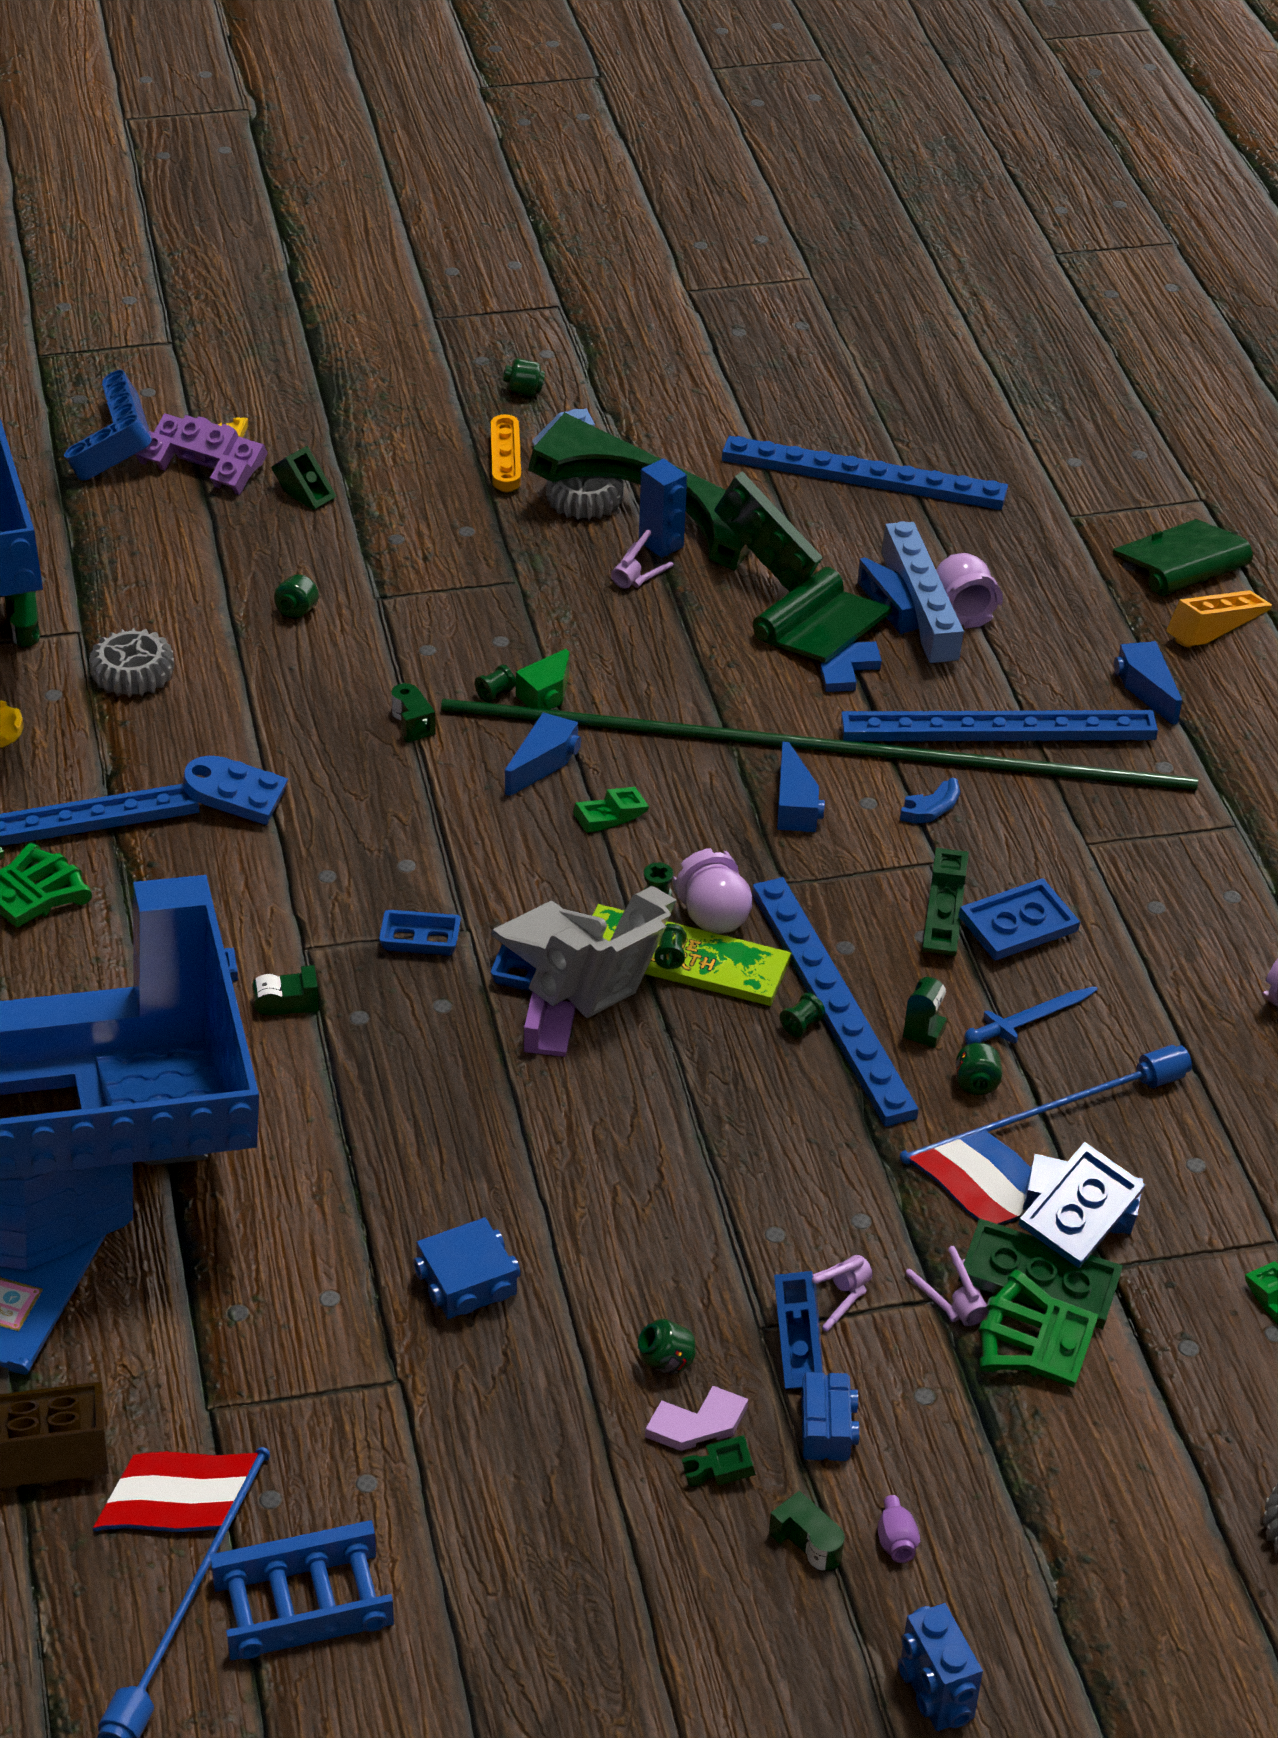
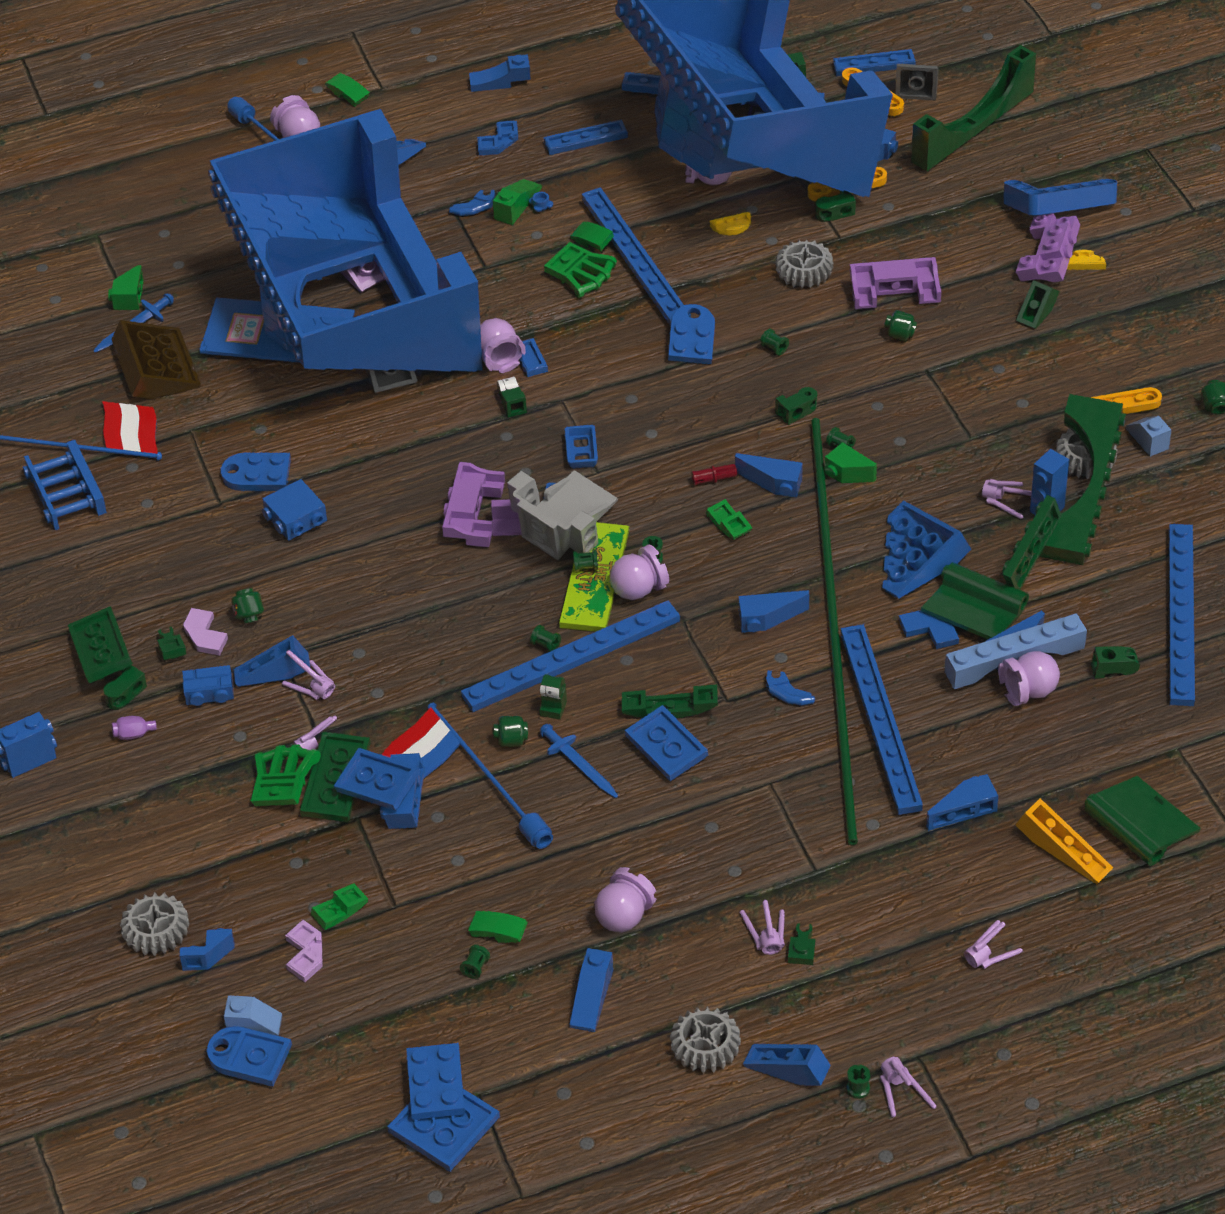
camera: 85 degrees right, 5 degrees up
(203, 584) = (895, 278): none -> medium lavender bracket
(278, 713) = (774, 341): none -> dark green bush
(345, 1316) = (256, 471): none -> blue plate
(514, 1062) = (465, 504): none -> medium lavender bracket
(518, 810) = (713, 474): none -> dark red axle
(714, 646) = (918, 549): none -> blue slope
(720, 1549) = (100, 644): none -> dark green plate
(940, 531) = (1114, 660): none -> dark green leg

